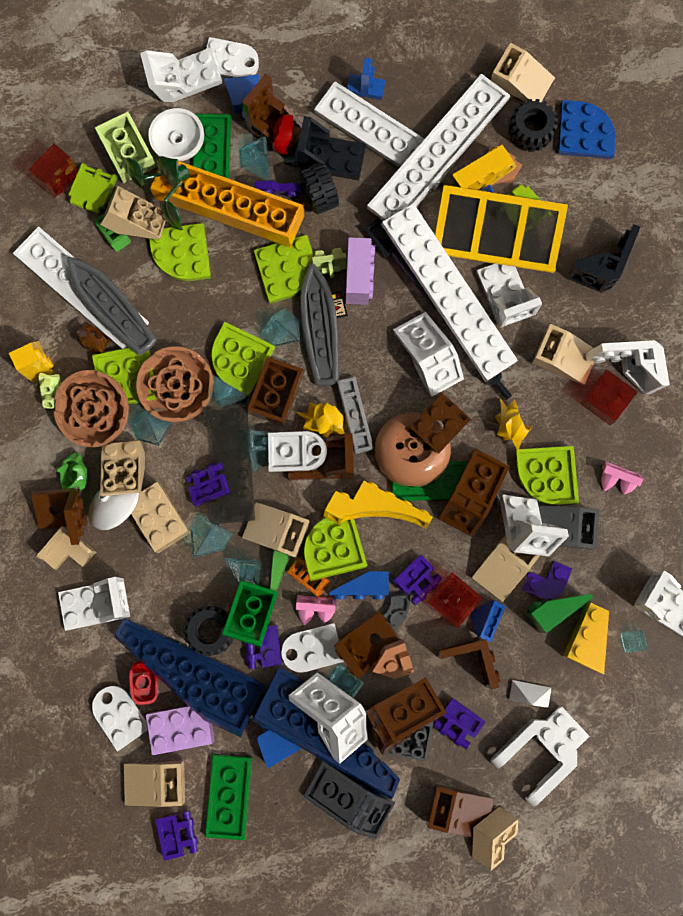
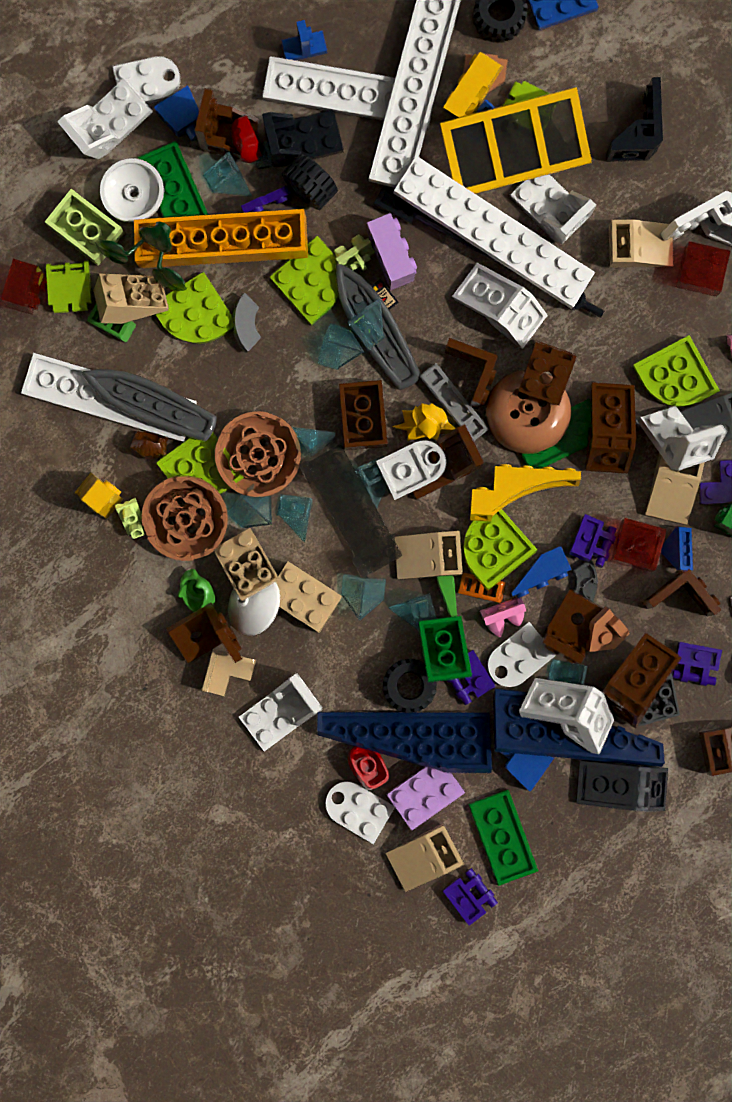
camera: 25 degrees left, 5 degrees up
(186, 447) = (296, 513): none -> clear light blue slope
(210, 489) = (343, 544): dark purple plate -> none
(216, 276) = (244, 322): none -> tile
(239, 357) = (309, 396): lime plate -> none
(314, 320) = (368, 324): none -> clear light blue slope
(392, 387) = (478, 357): none -> reddish brown bracket
(511, 424) = (617, 341): yellow hair -> none

